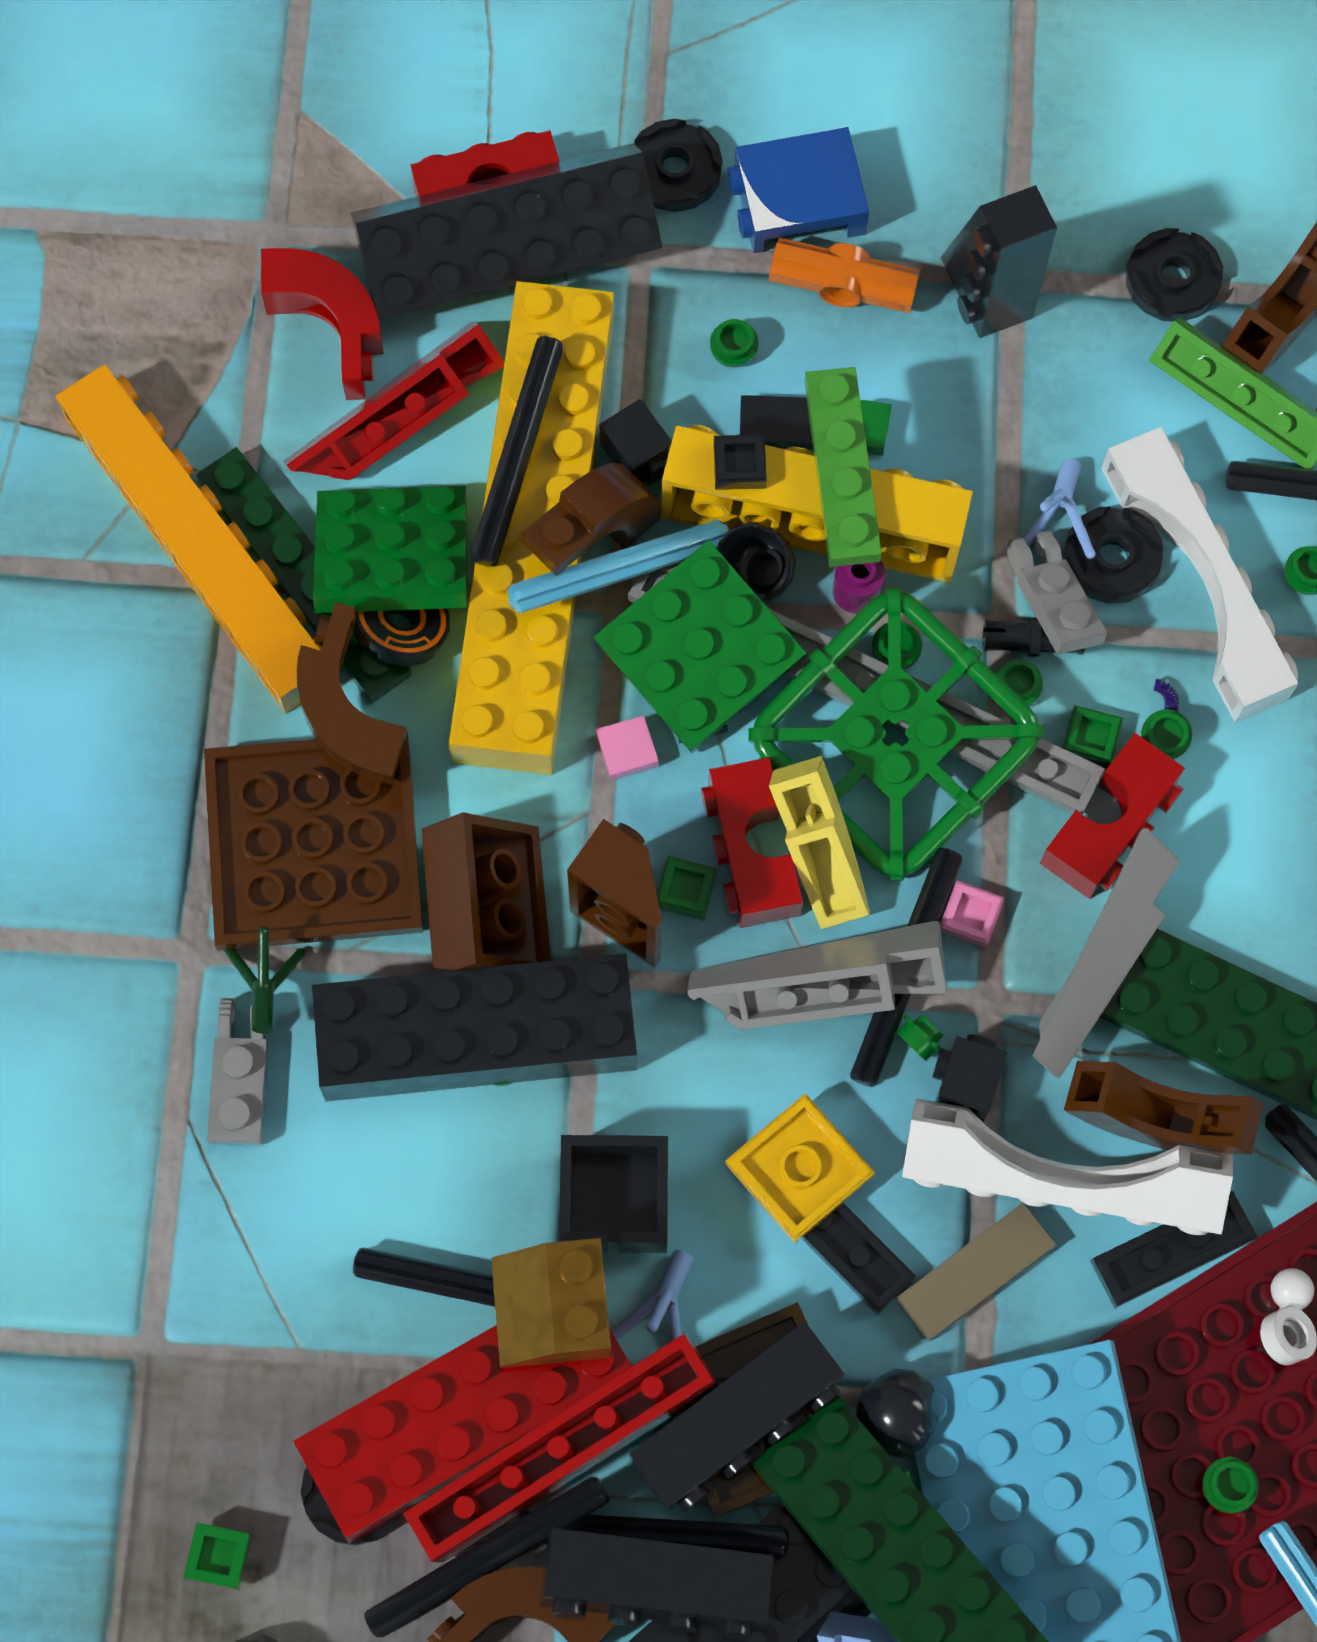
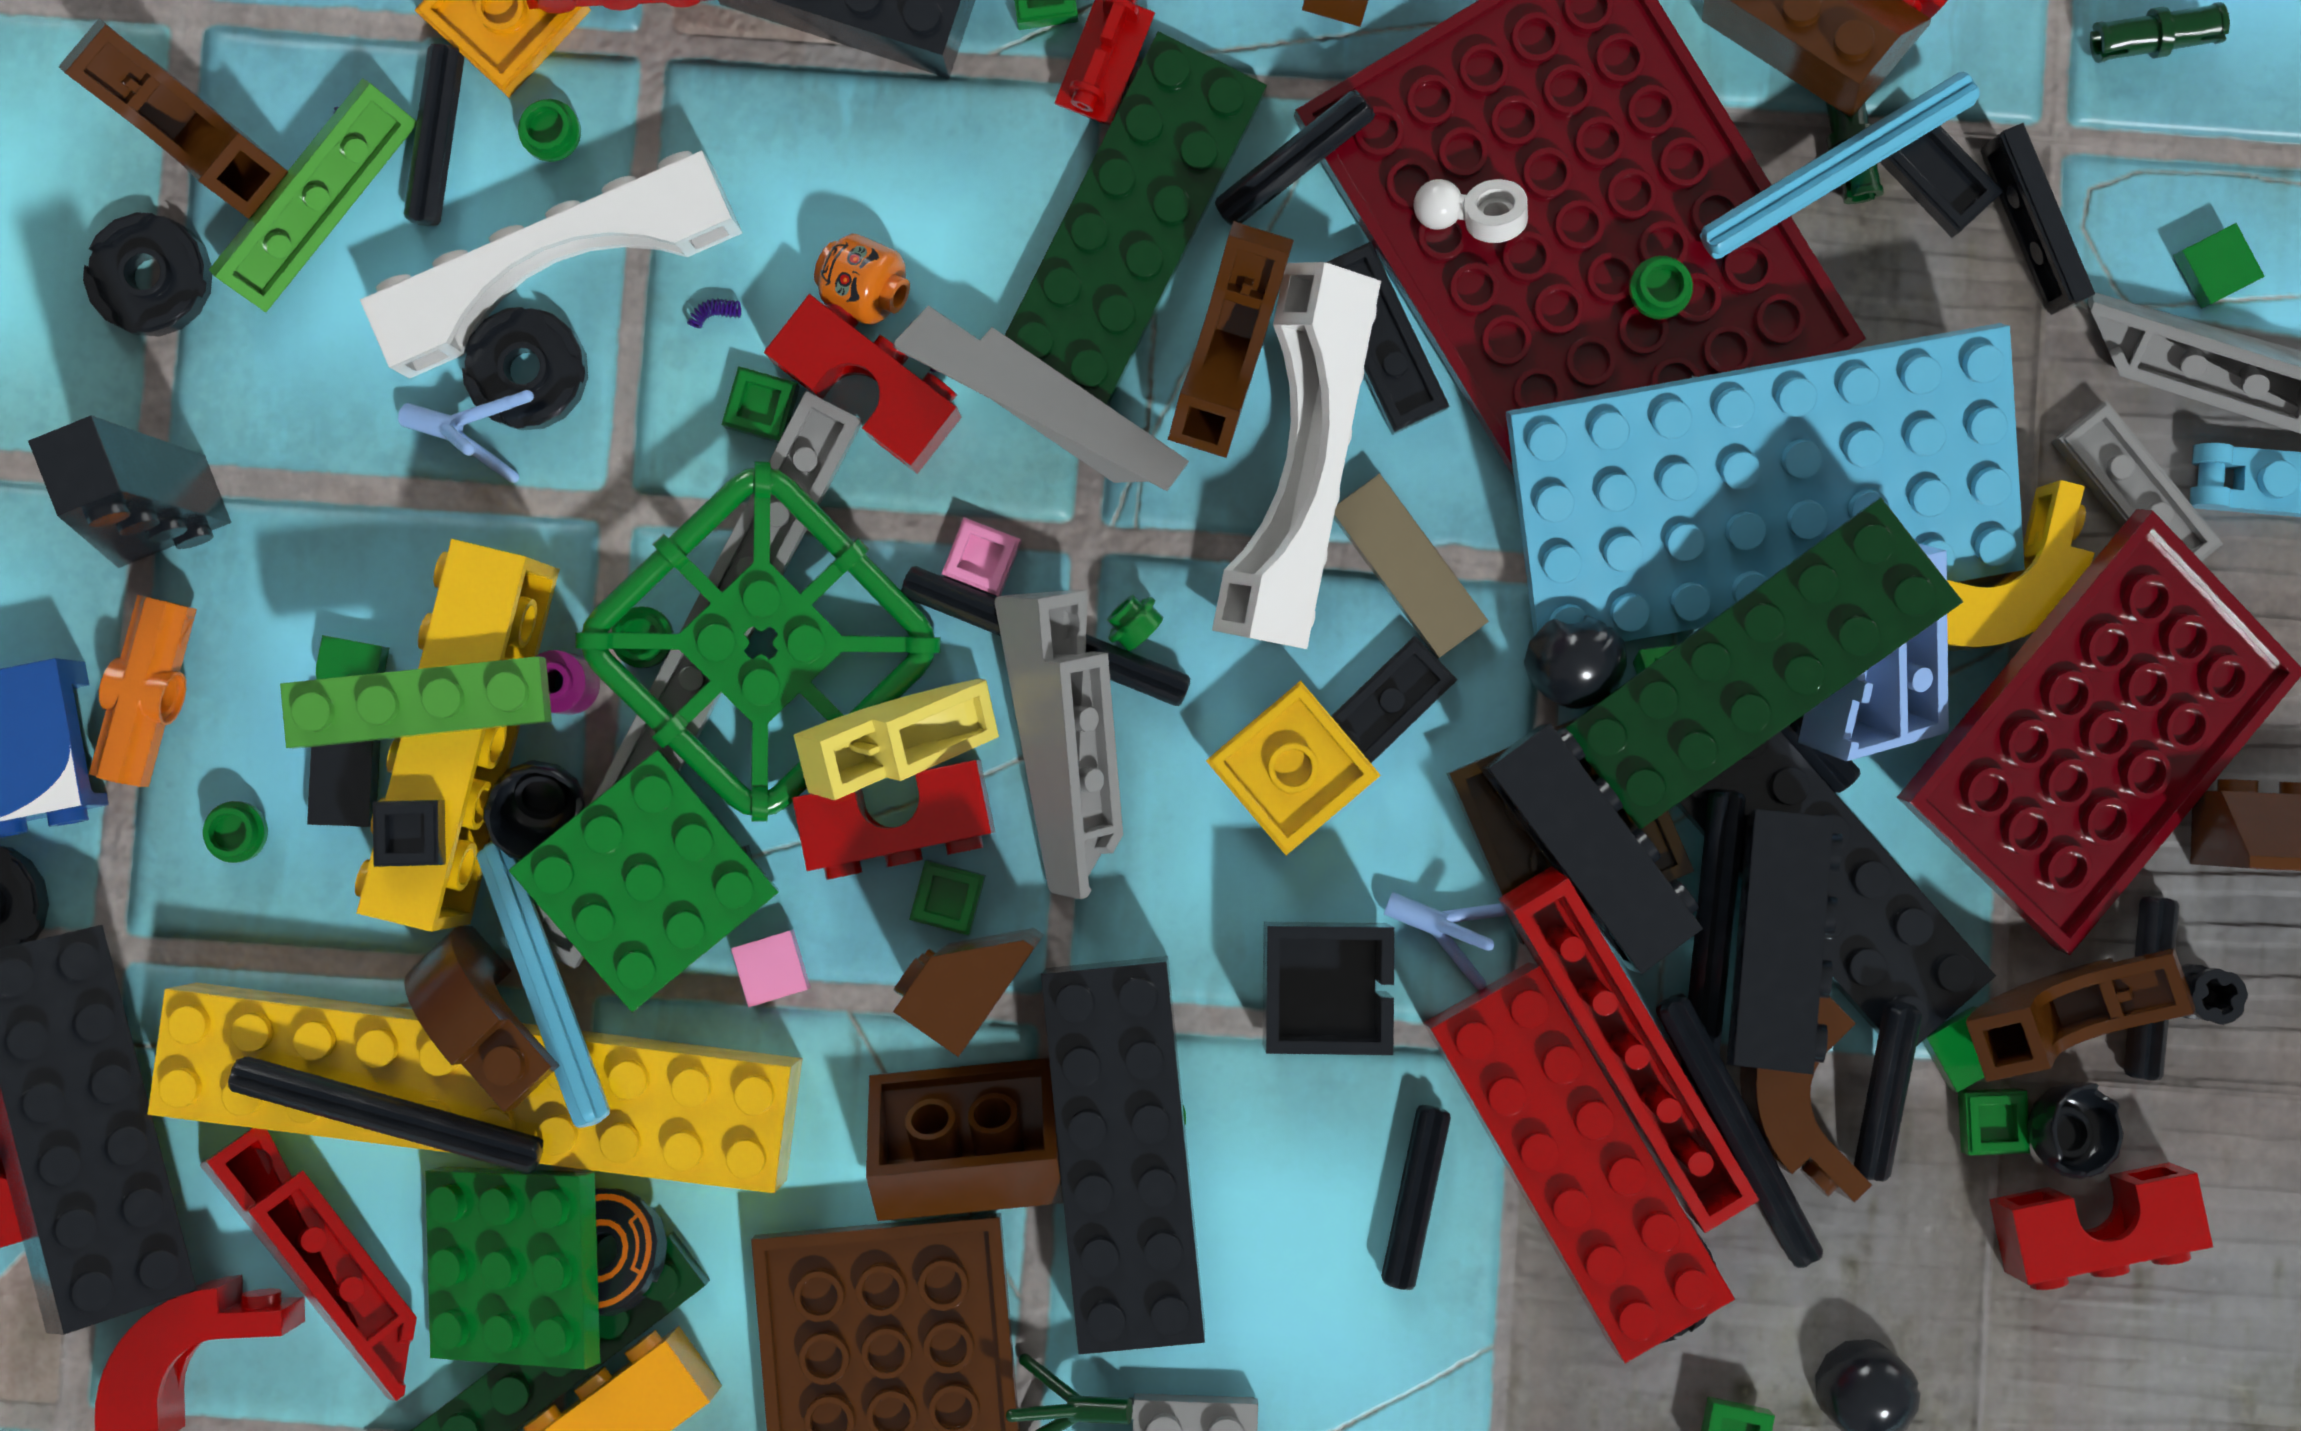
camera: 85 degrees left, 15 degrees up
(346, 734) = (729, 1346): reddish brown arch -> none
(551, 1304) = (1476, 1065): pearl gold slope -> none
(636, 442) = (370, 958): black brick -> none
(969, 1073) = (1181, 566): black brick -> none
(1018, 637) = (632, 469): black pin -> none
(1022, 679) = (689, 488): green plate -> none
(1055, 595) = (581, 440): light grey hinge -> none
(1168, 732) = (759, 314): green plate -> none
(1201, 813) = (862, 278): none -> orange head

